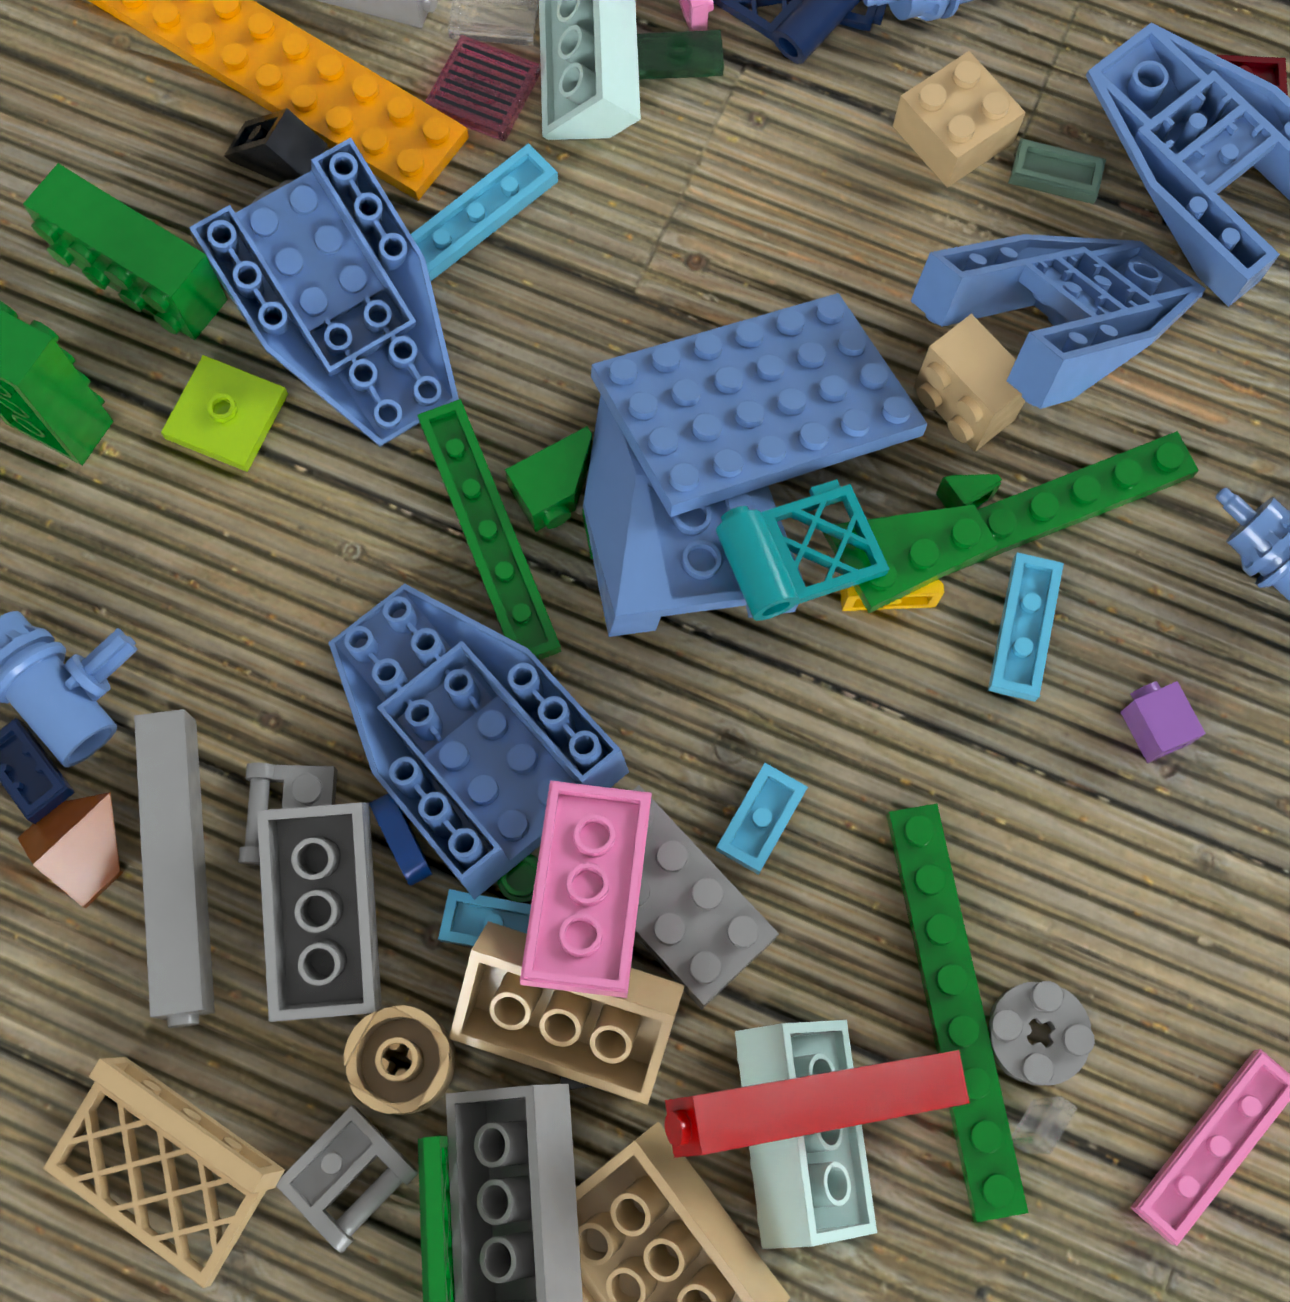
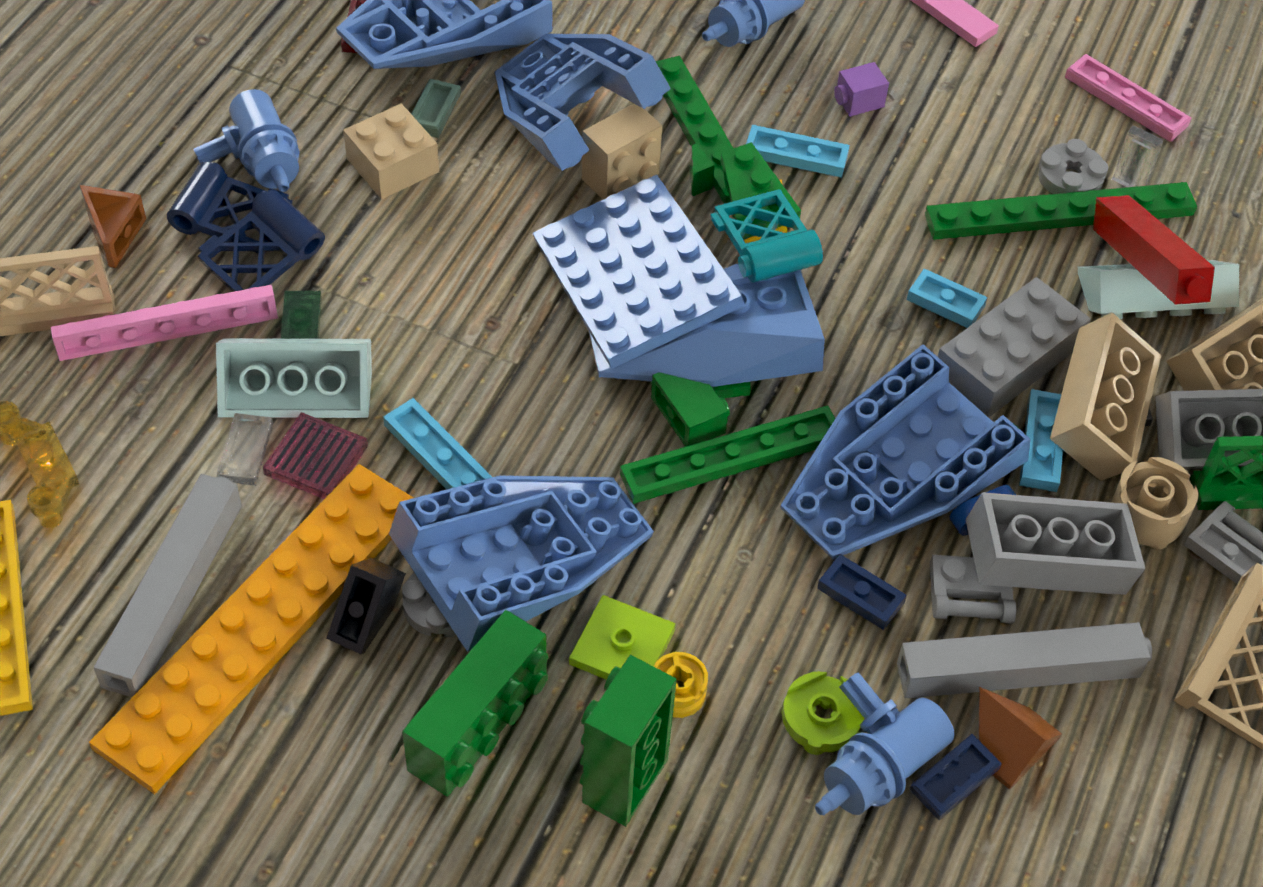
camera: 90 degrees left, 20 degrees down
(132, 602) = (809, 730): none -> lime plate
(178, 476) = (695, 678): none -> yellow wheel
(282, 677) = (861, 592): none -> dark blue plate
(586, 890) = (1027, 362): bright pink tile -> none

